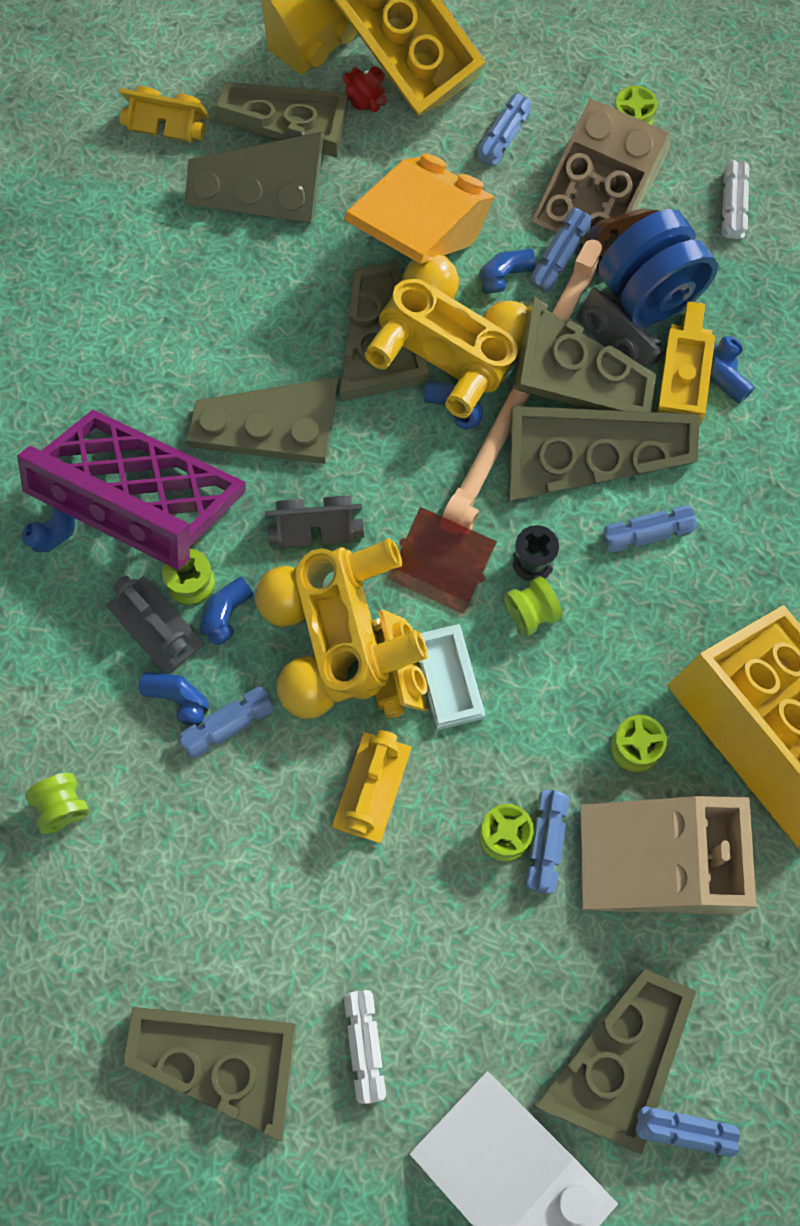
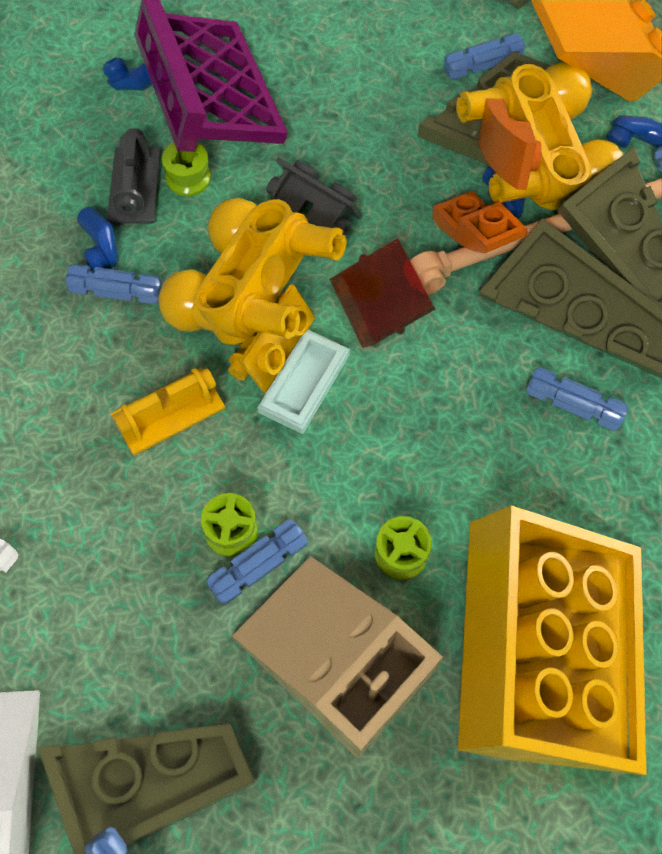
camera: 40 degrees right, 5 degrees down
(218, 609) = (188, 204): blue arm -> none
(269, 422) = (350, 114): olive wing -> none
(328, 288) = (482, 55): none -> medium blue axle
(445, 369) = (508, 144): none -> orange slope
(463, 448) = (476, 224): none -> orange slope
(533, 606) = (418, 378): lime wheel -> none
(535, 539) = (470, 338): black bush -> none

